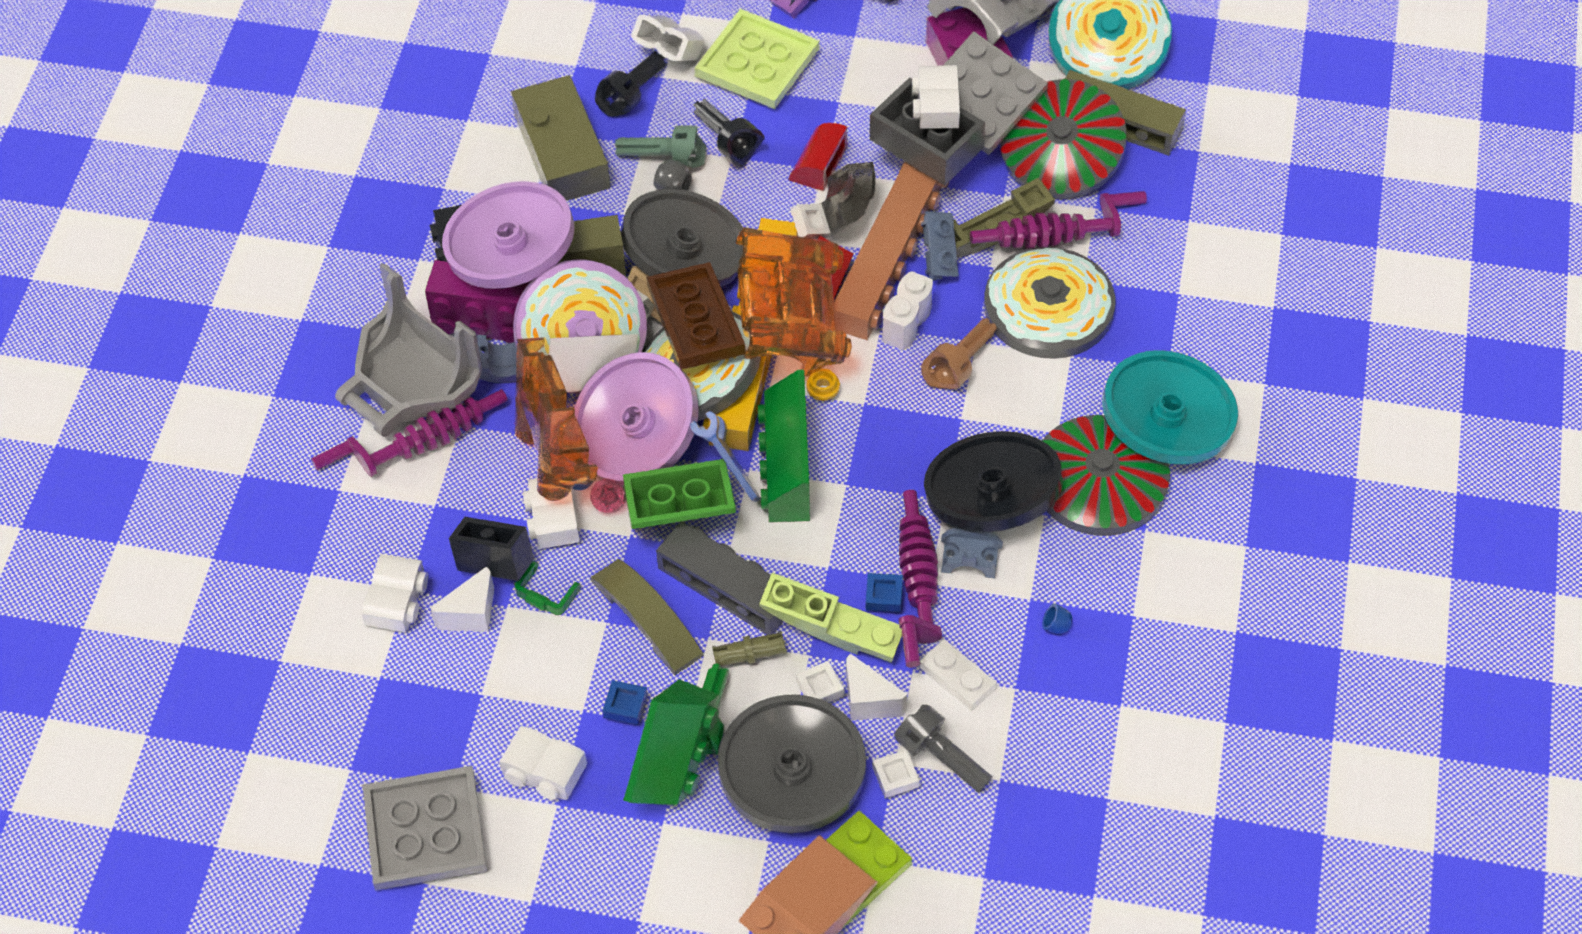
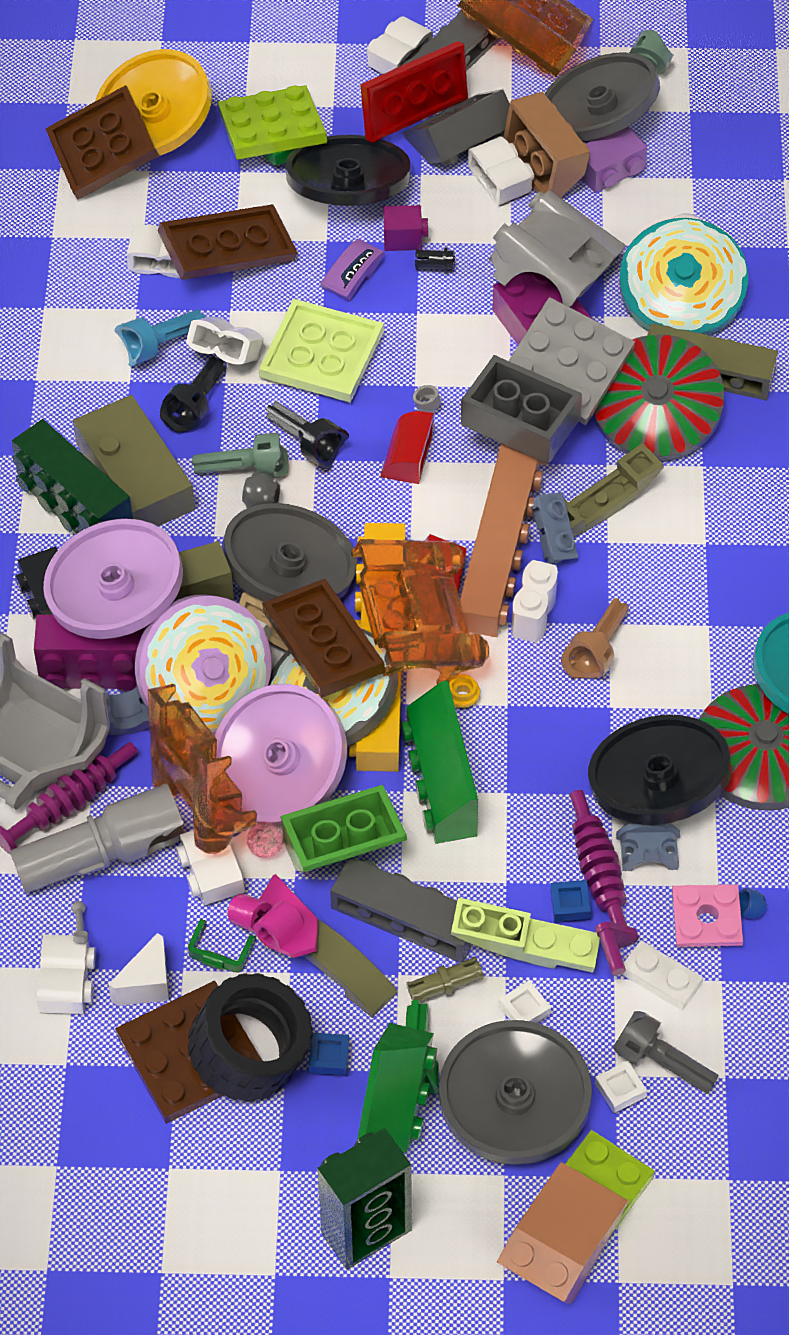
camera: 10 degrees left, 0 degrees up
(414, 559) = (80, 935): none -> light grey hinge
(424, 828) = (149, 1215): light grey plate -> none
(477, 470) = (123, 832): none -> light grey piece
(491, 141) = (66, 480): none -> dark green brick
(493, 545) = (159, 909): black brick -> none
(497, 682) = (161, 1057): none -> reddish brown plate
(543, 763) = (258, 1130): white brick -> none
(570, 642) = (272, 1005): none -> black tyre
(582, 357) = (217, 694): white sticker -> none
(593, 28) = (143, 339): none -> dark azure piece
(602, 572) = (277, 919): none -> dark pink panel
(621, 840) = (365, 1197): none -> dark green brick
(717, 435) = (369, 762): flag -> none
(810, 221) = (417, 520): white plate -> none
(848, 195) = (447, 491): clear smoke brick -> none
(849, 111) = (429, 395): none -> light grey hinge
(872, 694) = (578, 1007): white slope -> none
(937, 96) = (529, 373): white brick -> none
(1003, 609) = (718, 900): none -> bright pink piece
(1049, 302) = (676, 572): dish -> none
(1055, 228) = (666, 495): magenta piece -> none

